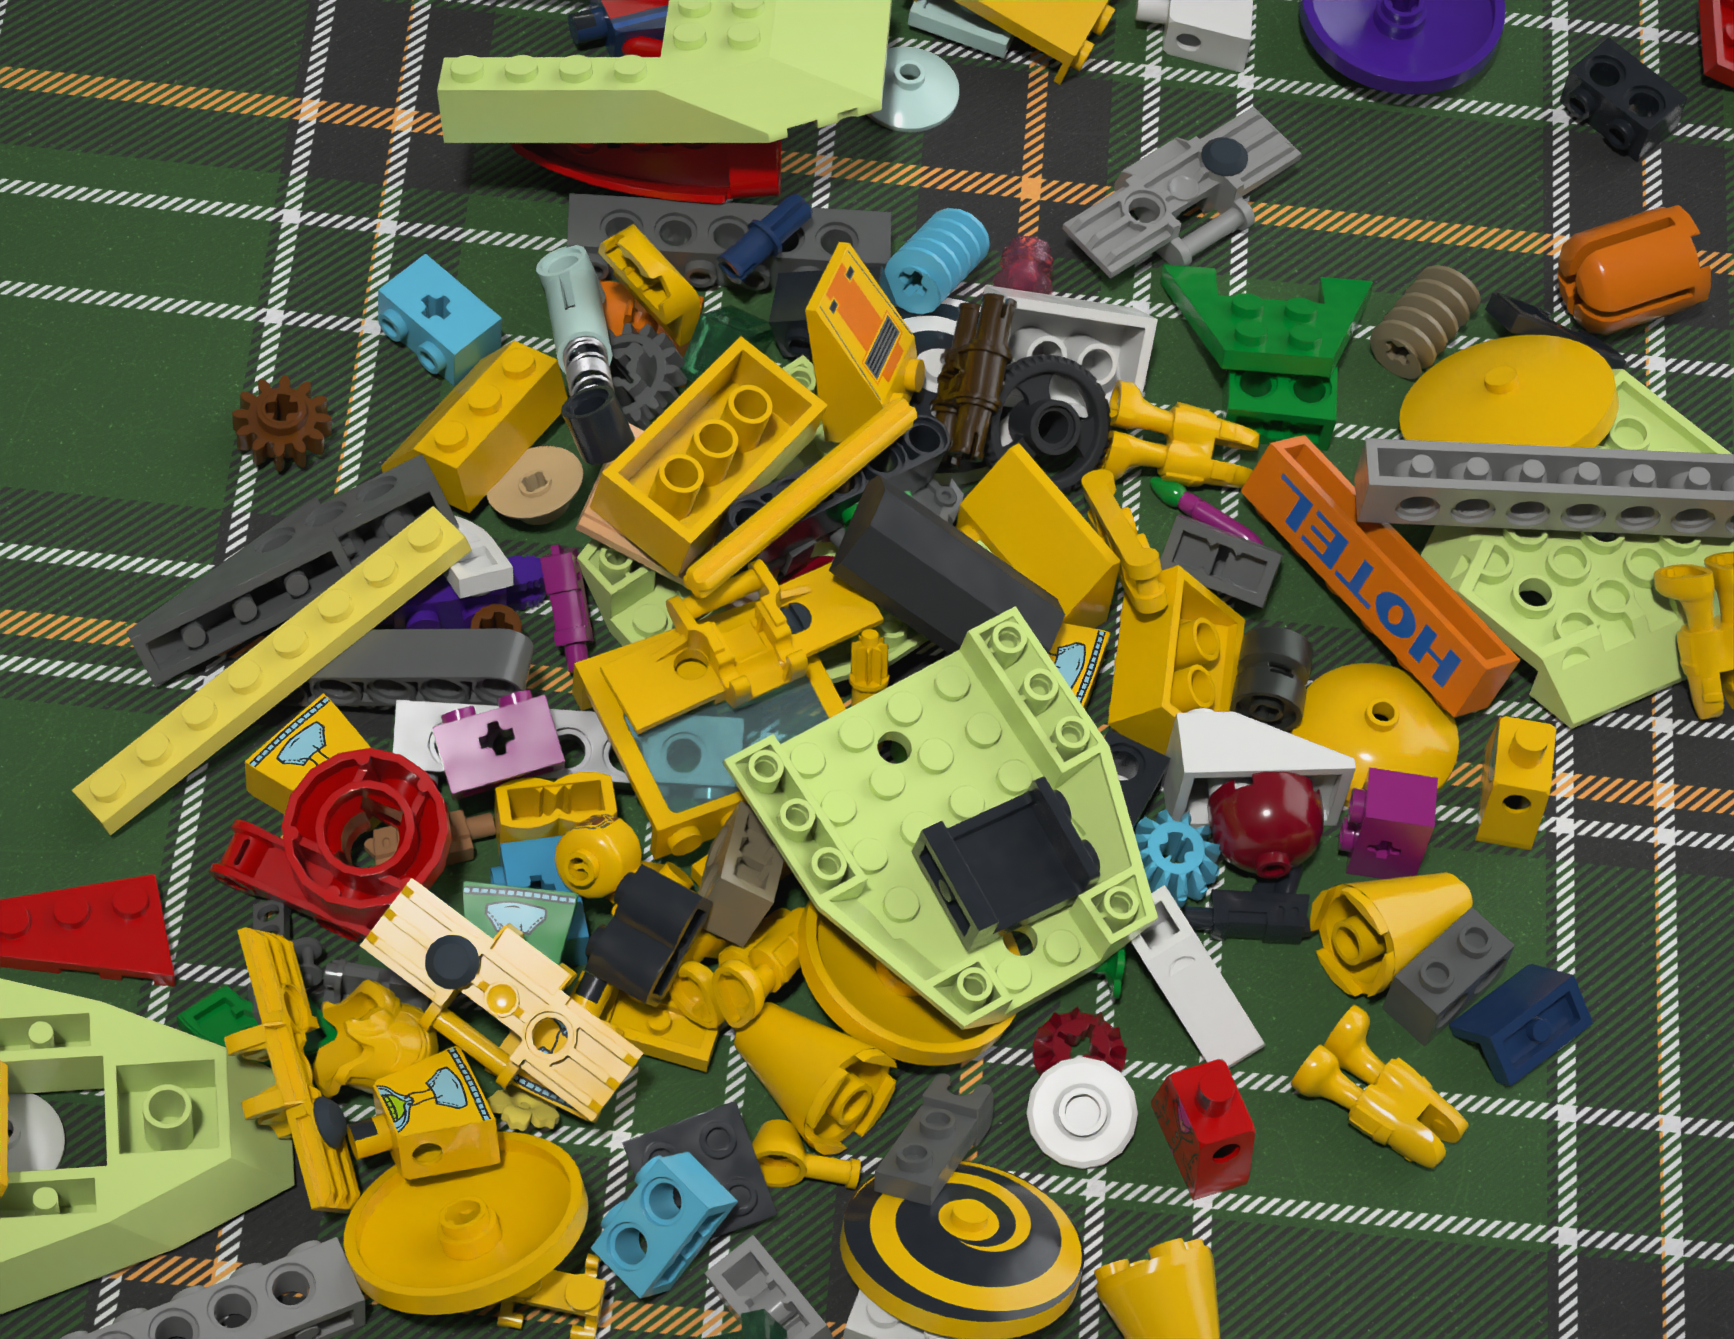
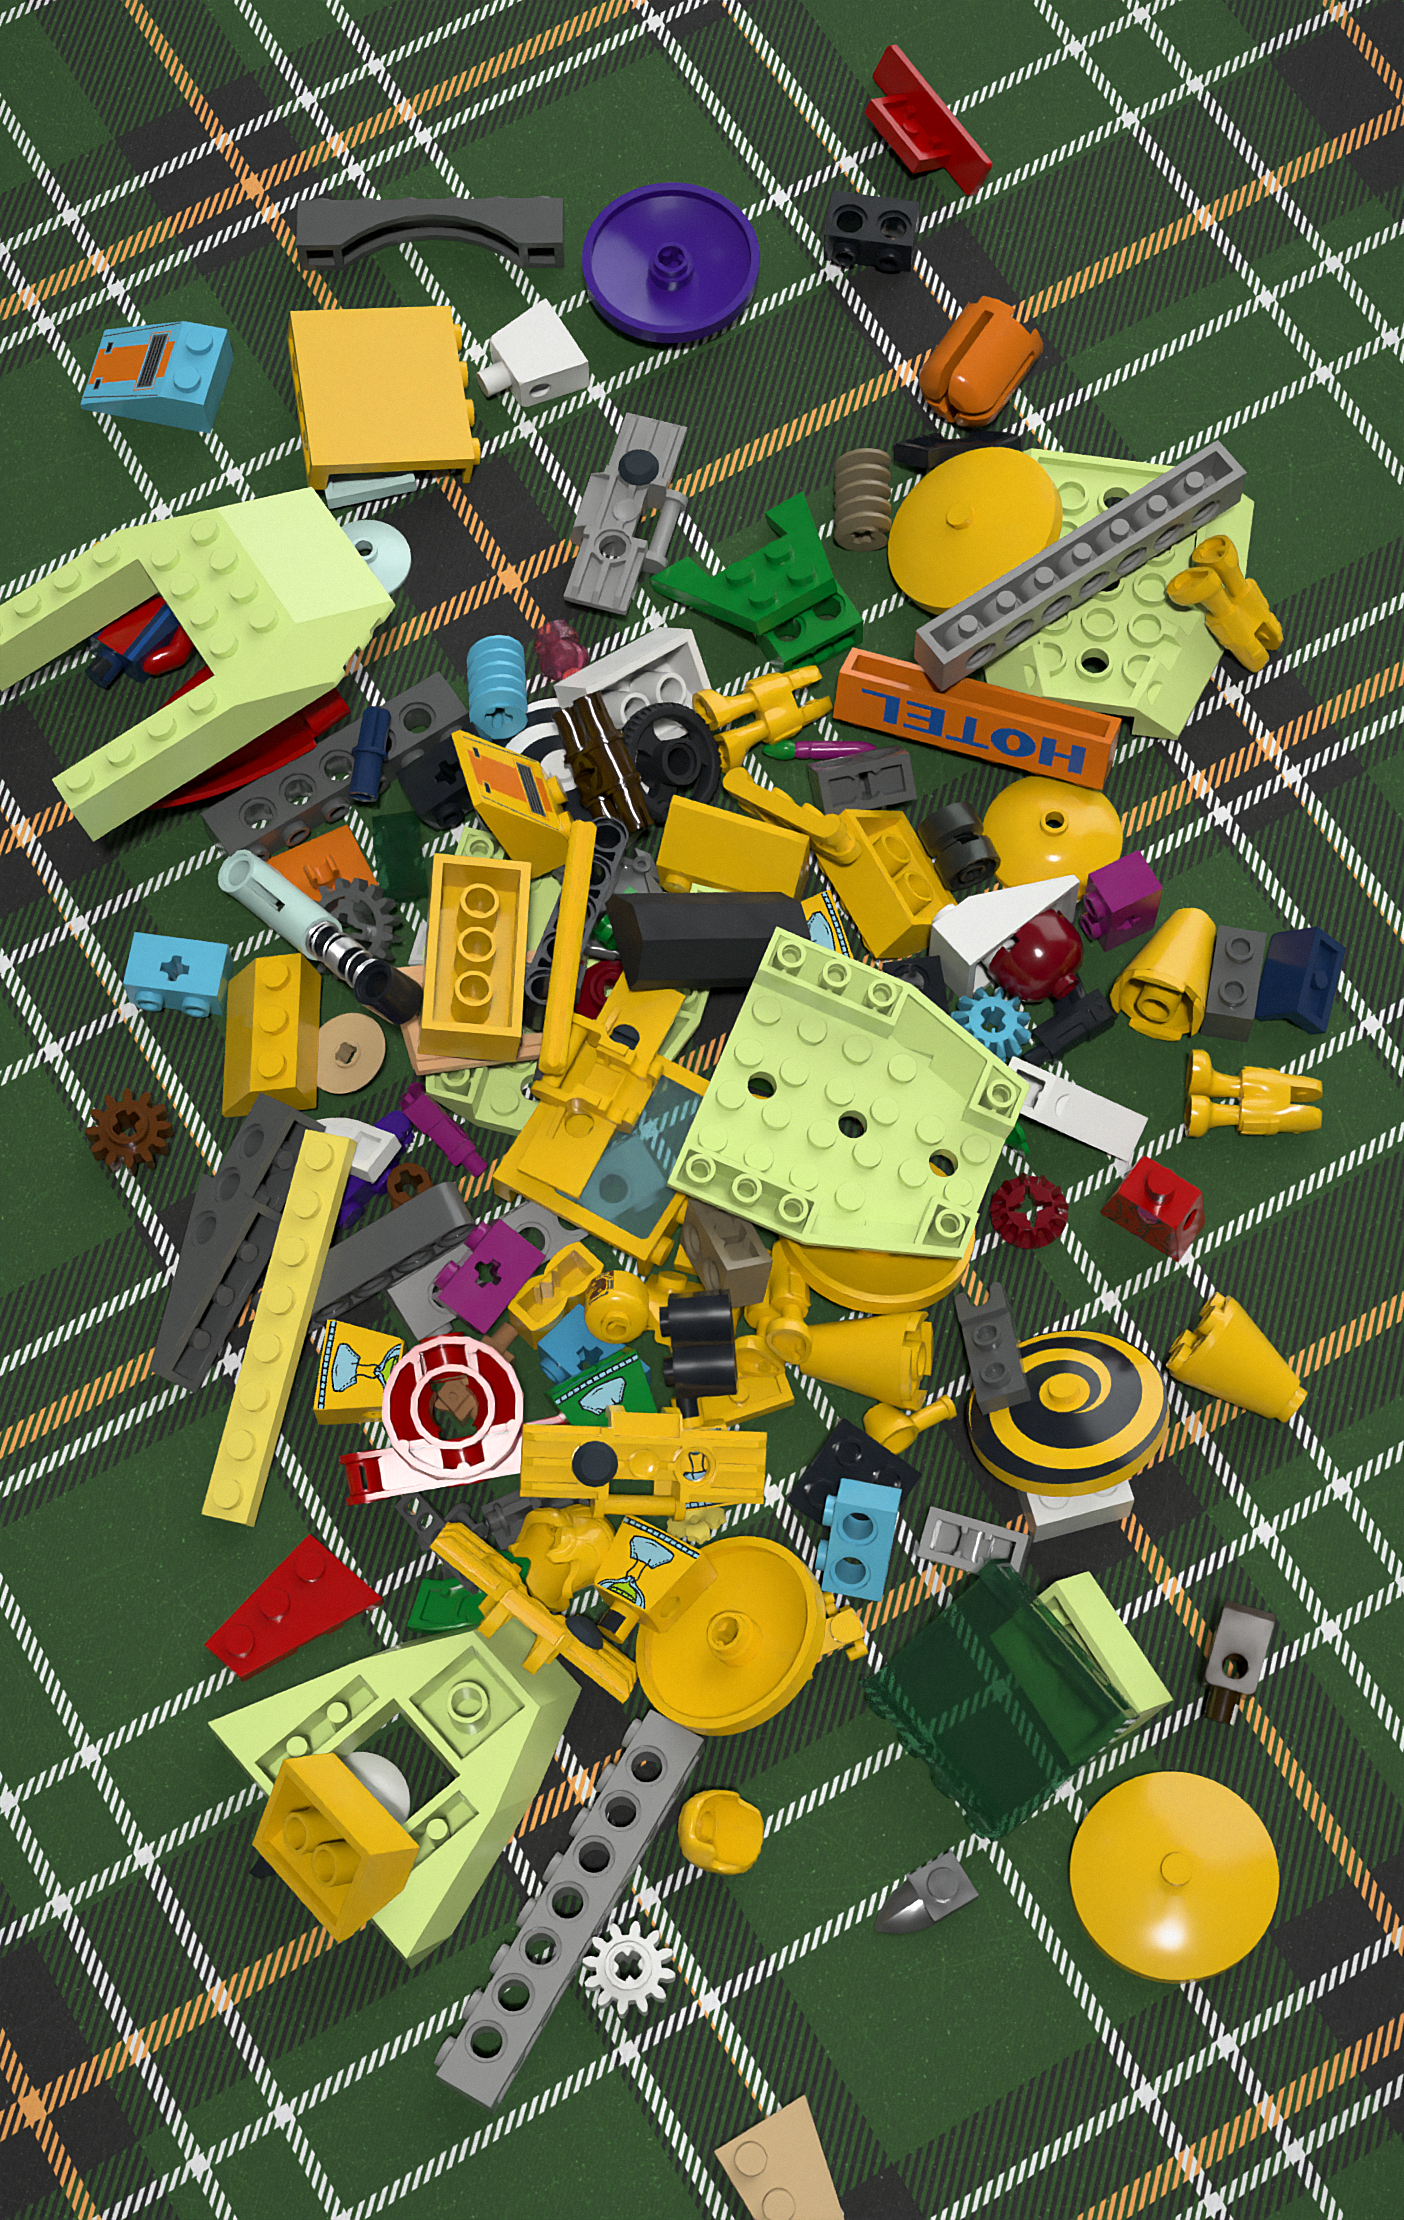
camera: 25 degrees left, 10 degrees up
(653, 282) = (322, 845): yellow slope -> none
(868, 667) = (698, 1042): yellow piece -> none
(1007, 864) = (904, 1118): black panel -> none
(1082, 1113) = (1066, 1254): white wheel -> none
(1515, 763) = (1170, 800): yellow torso -> none

